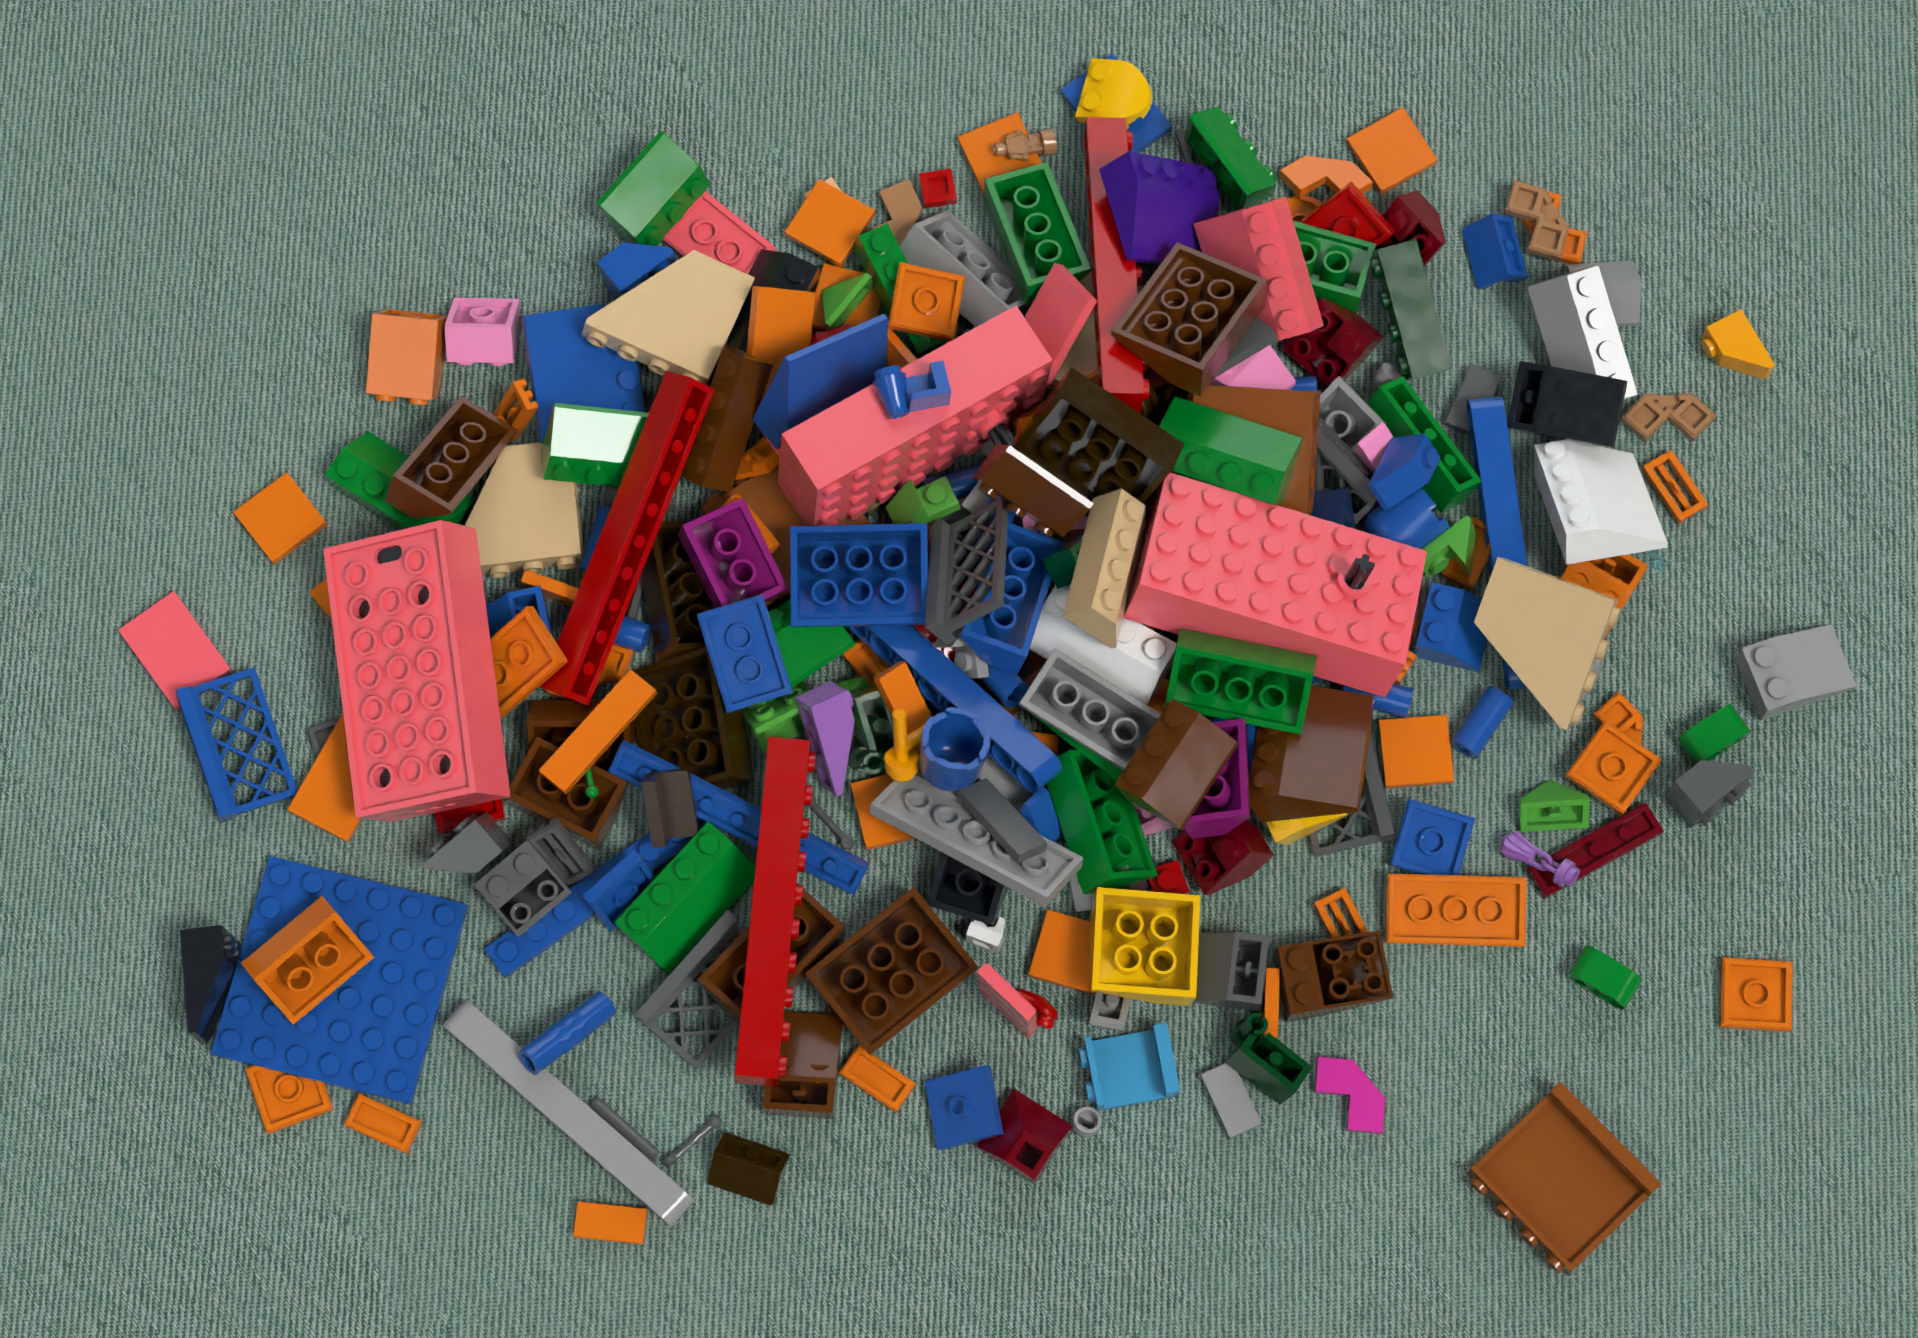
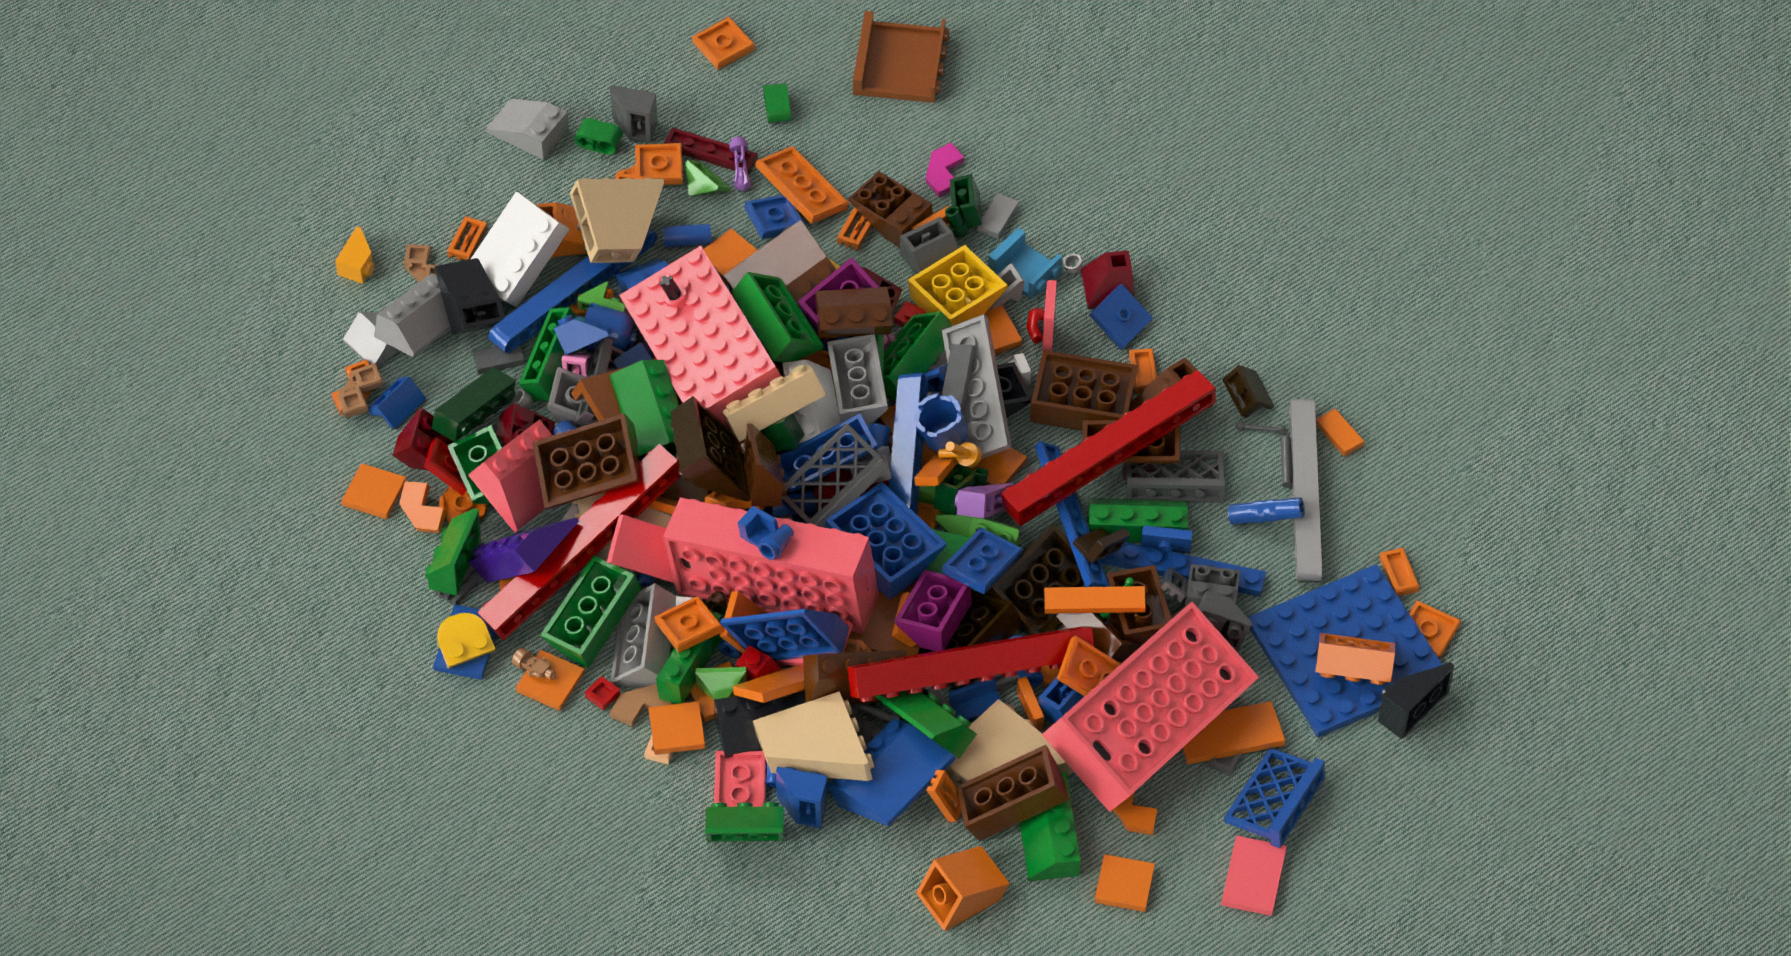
camera: 135 degrees left, 20 degrees down
(482, 331) = (907, 859): bright pink slope -> none

